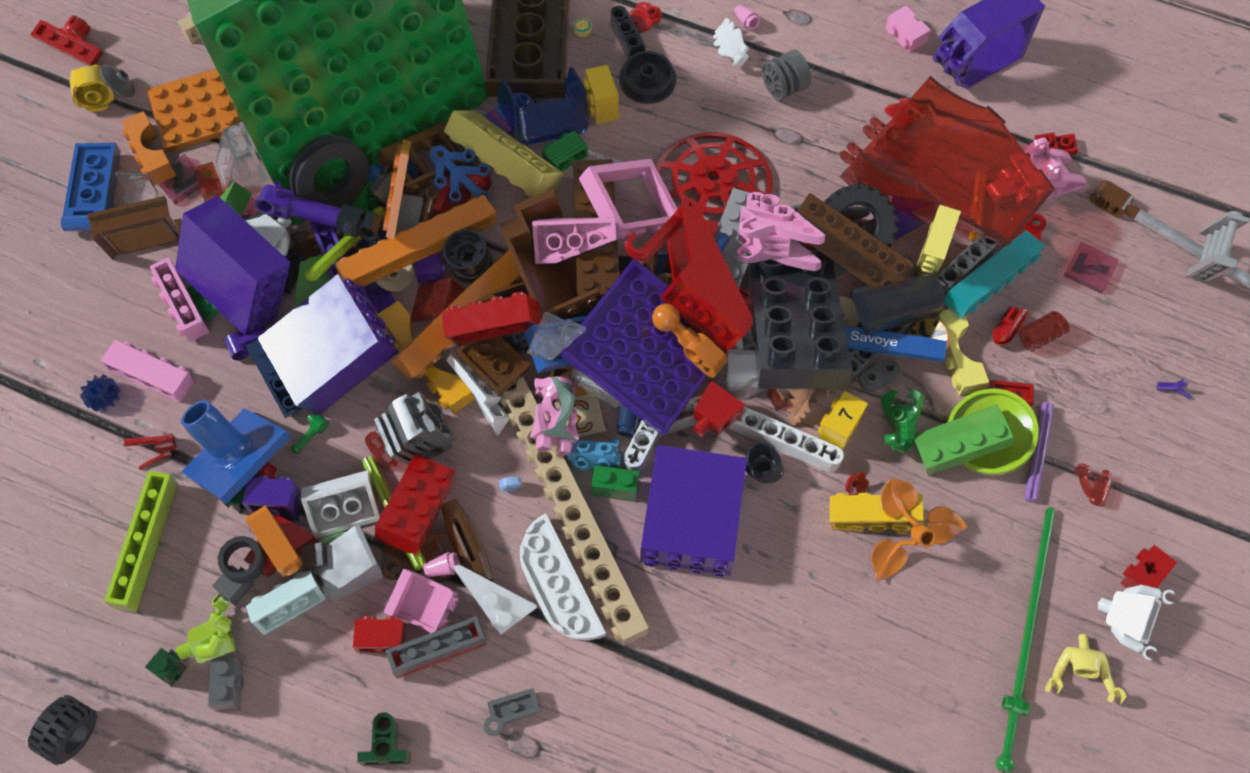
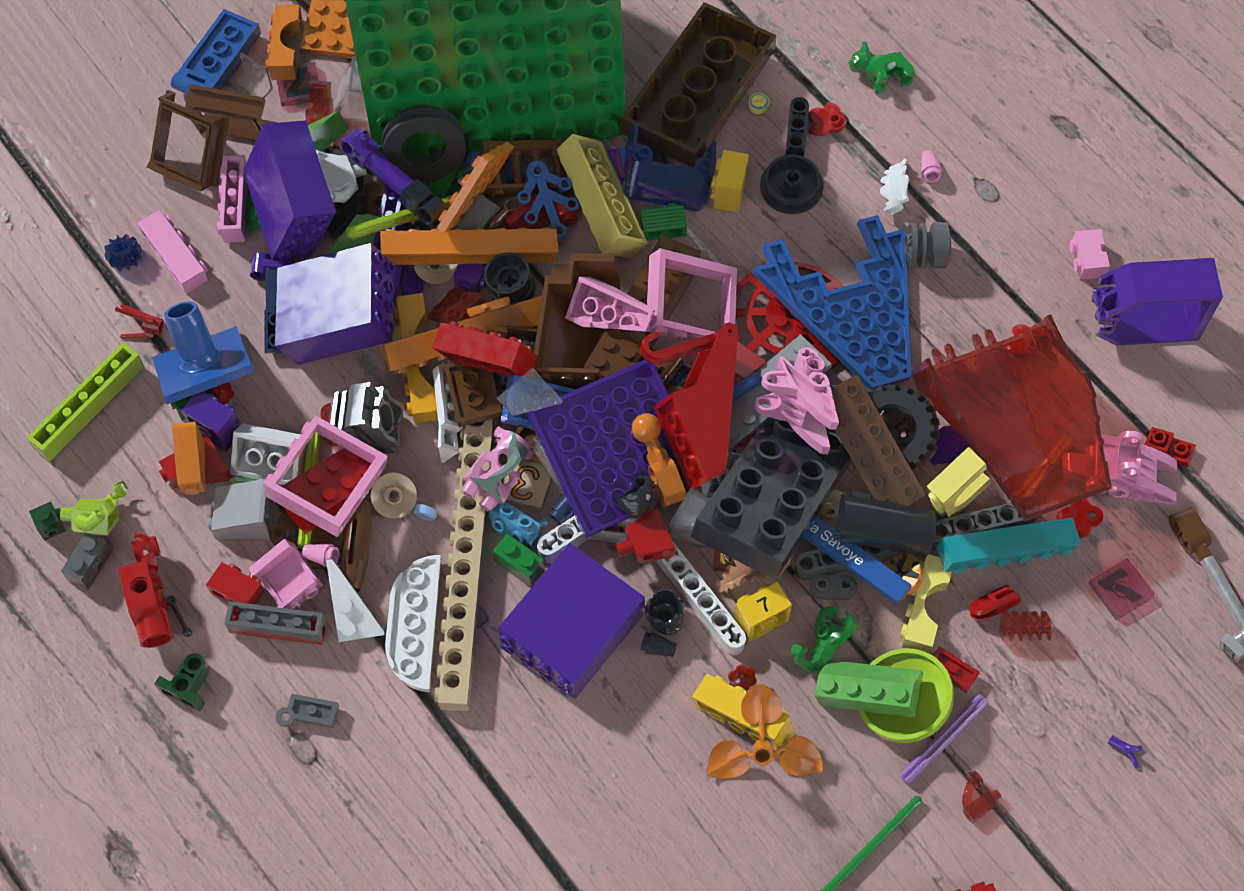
camera: 30 degrees right, 0 degrees up
(138, 265) = (213, 148): none -> reddish brown piece
(231, 590) = (140, 479): dark grey brick -> none
(233, 545) = (148, 446): black tyre -> none
(285, 602) = (173, 516): light aqua slope -> none
(304, 691) = (143, 593): none -> red brick
(314, 555) = (217, 488): black tile -> none
(318, 425) = (290, 373): green piece -> none
(325, 678) = (187, 632): none -> black hinge
(410, 532) = (307, 510): none -> bright pink window
(463, 286) = (487, 307): none -> orange tile
(484, 487) = (392, 507): none -> tan dish
(693, 377) = (641, 498): none -> black hair
(767, 156) = (859, 322): none -> blue wing
(771, 494) = (657, 645): none -> black cone

